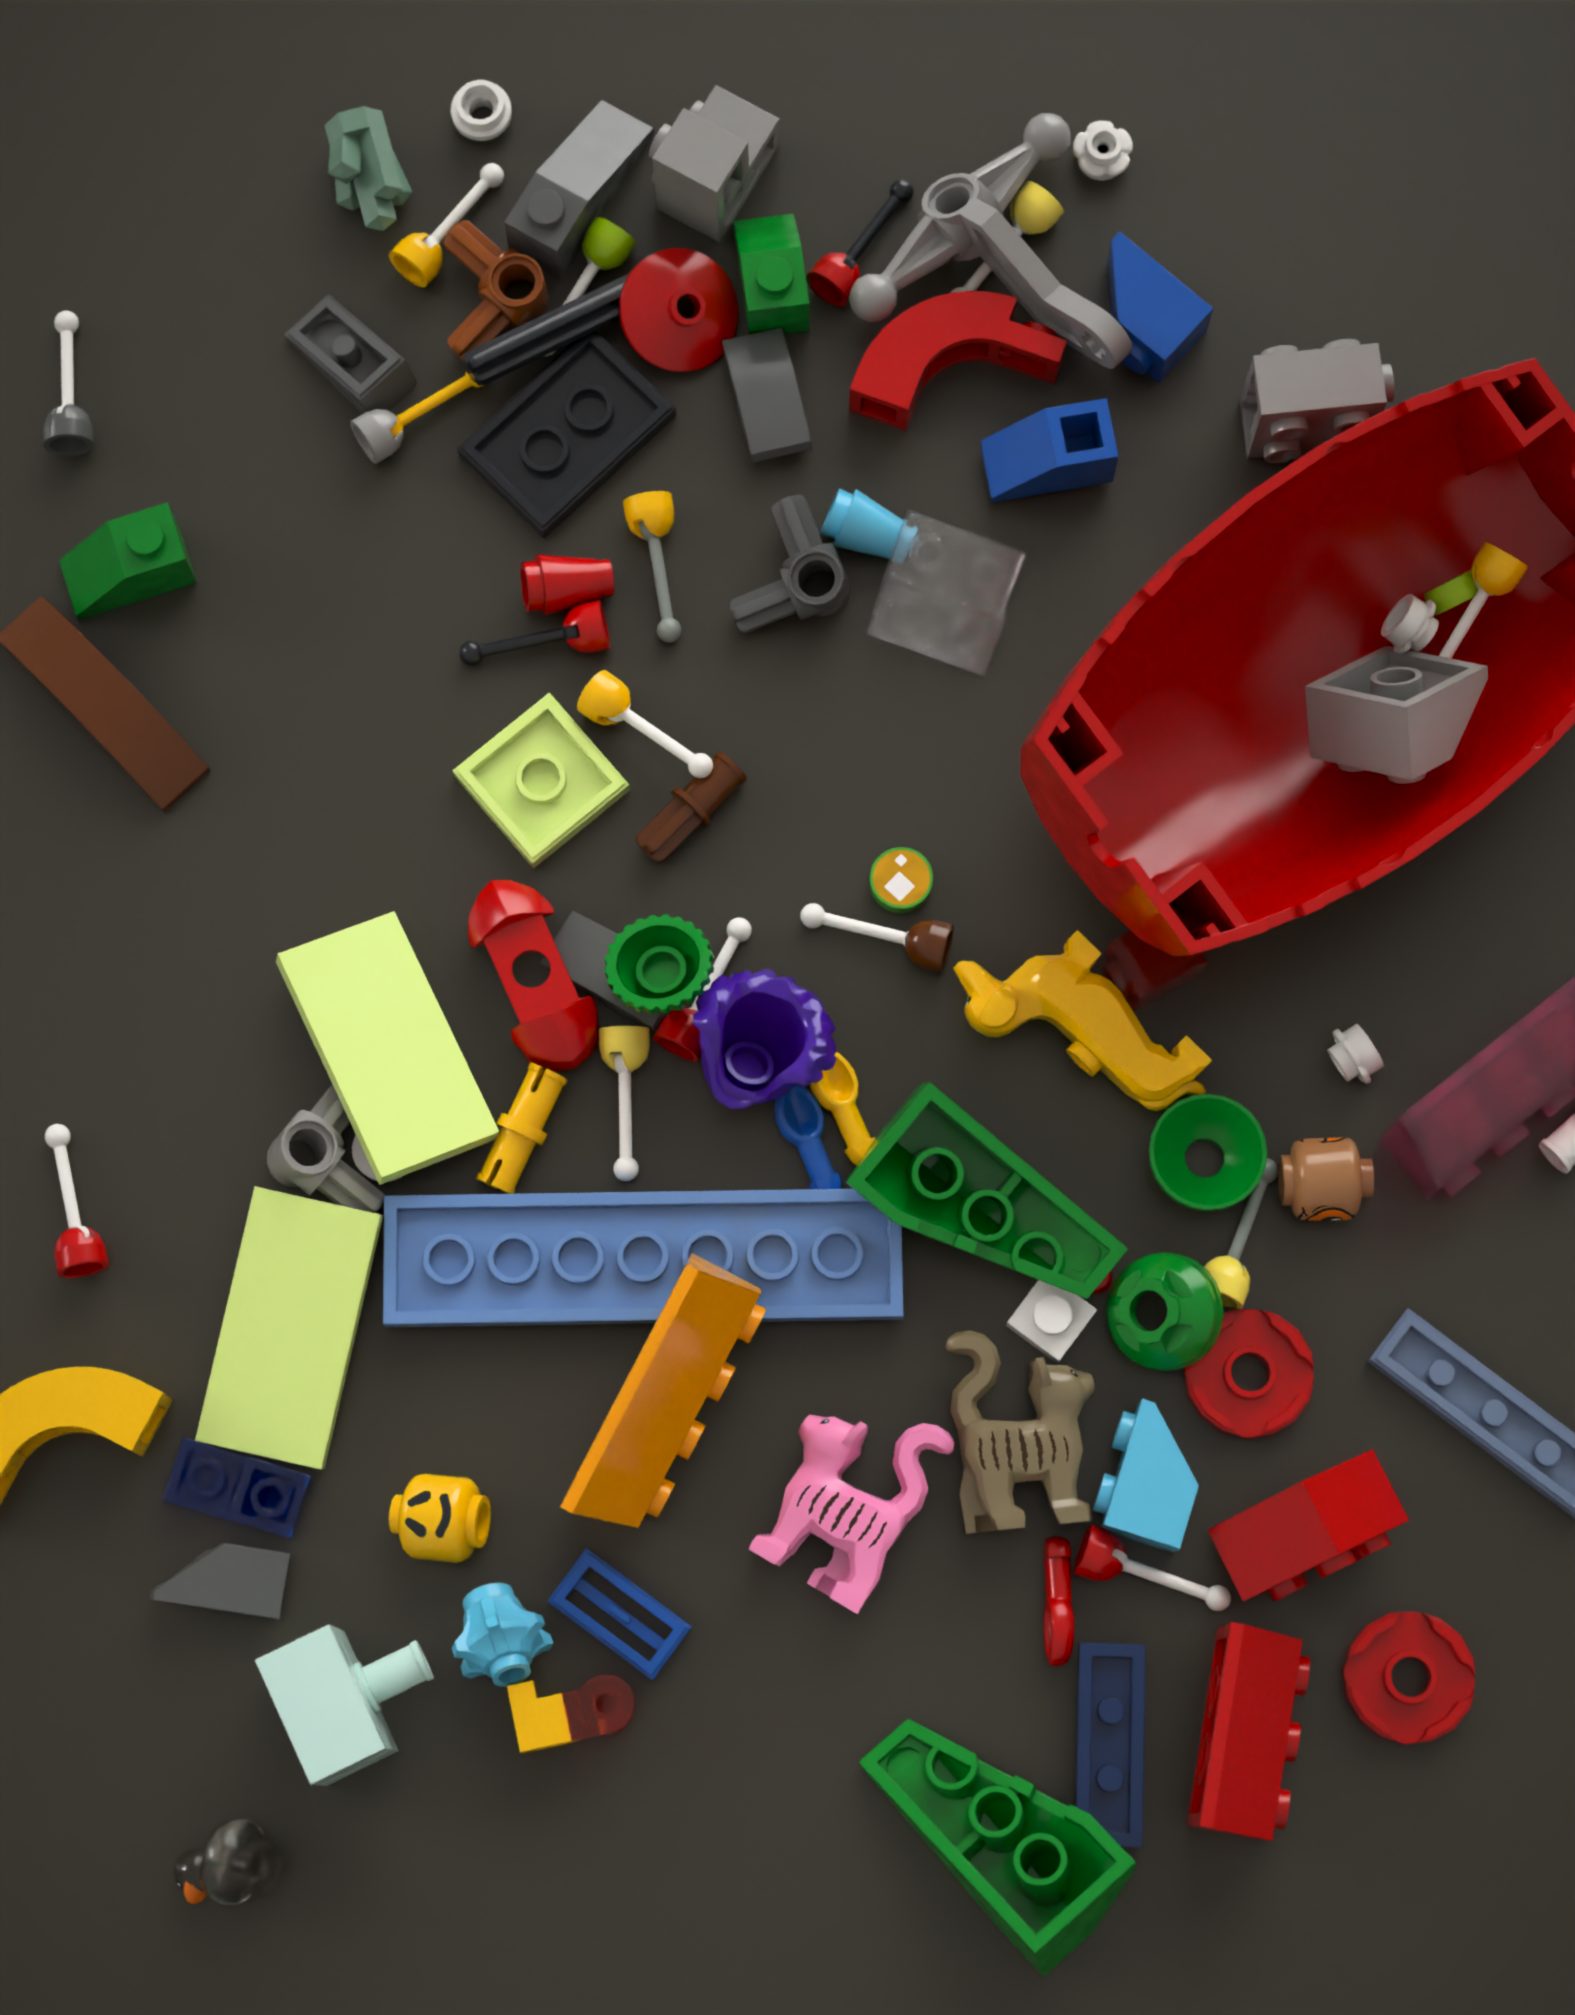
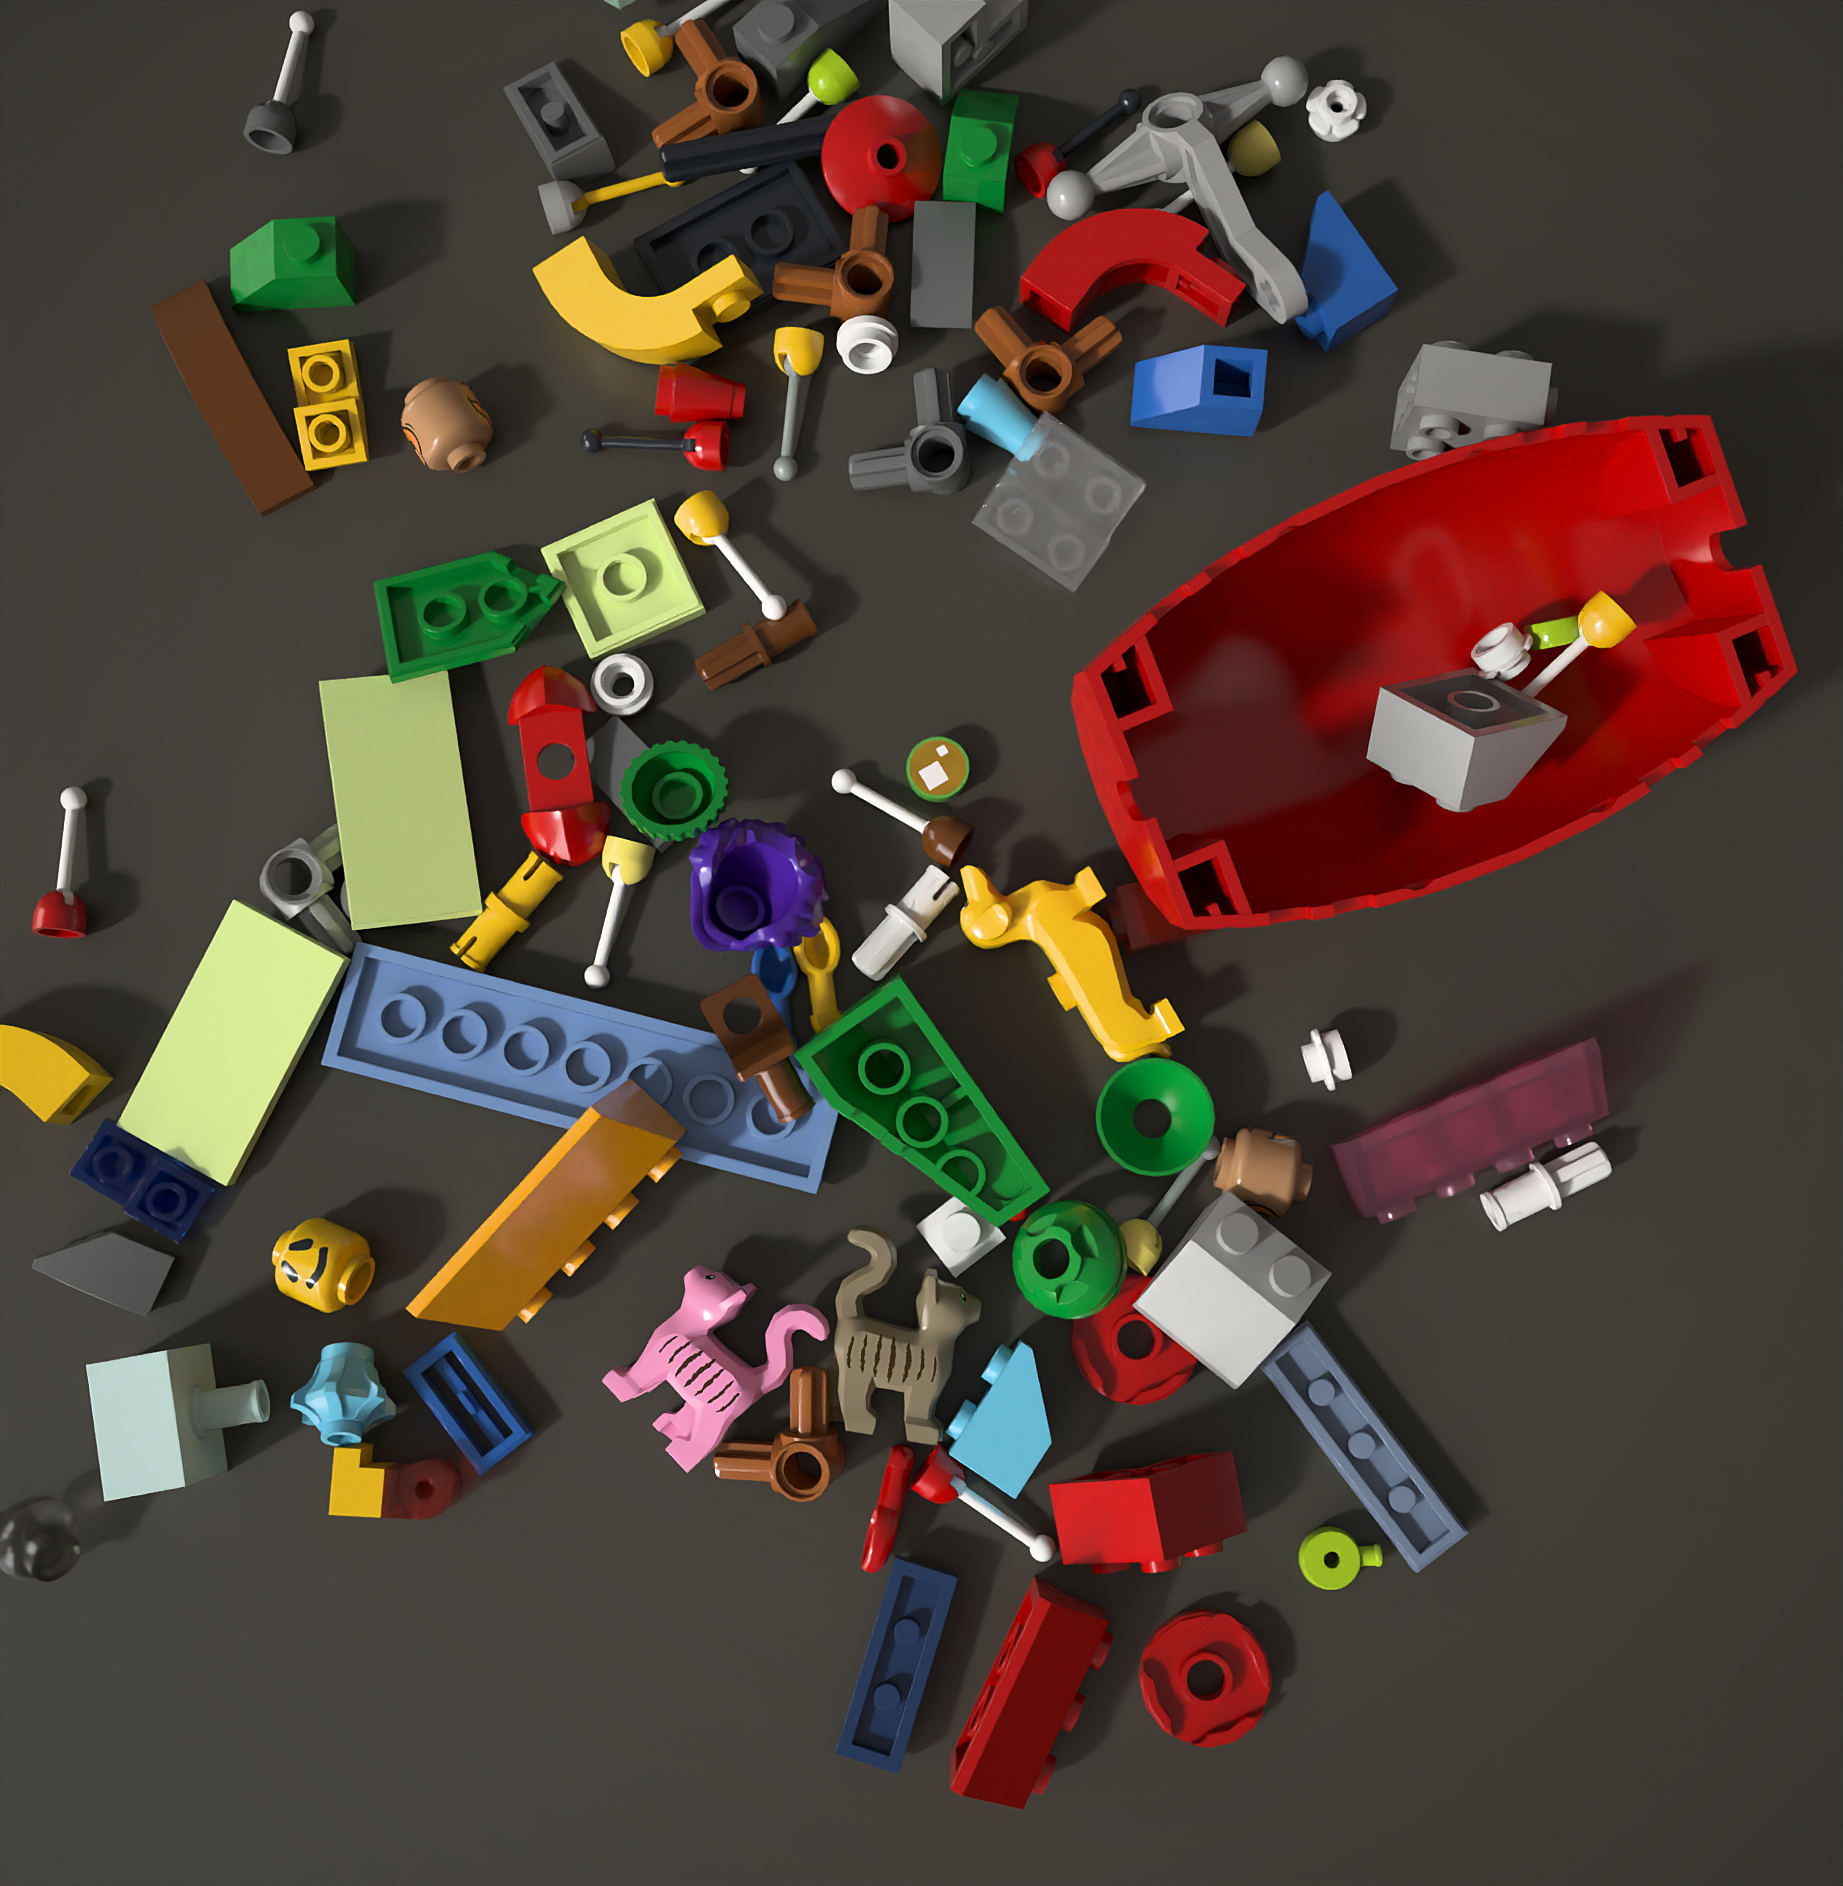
camera: 20 degrees right, 5 degrees up
(202, 686) = (330, 405): none -> yellow slope
(326, 675) = (447, 425): none -> medium nougat head
(393, 852) = (460, 613): none -> green tile
(497, 531) = (645, 329): none -> yellow arch
(570, 862) = (609, 672): none -> white plate
(676, 1030) = (676, 855): red hinge -> none
(690, 418) = (859, 268): none -> dark orange axle
(716, 490) = (867, 343): none -> white plate
(813, 1190) = (762, 1050): none -> reddish brown bracket
(912, 459) = (1028, 359): none -> dark orange axle
(913, 1035) = (905, 923): none -> white axle
(960, 1543) = (807, 1432): none -> dark orange axle
(1021, 1855) = (775, 1741): green wedge -> none
(1327, 1294) = (1231, 1289): none -> slope
(1512, 1525) = (1347, 1562): none -> lime piece

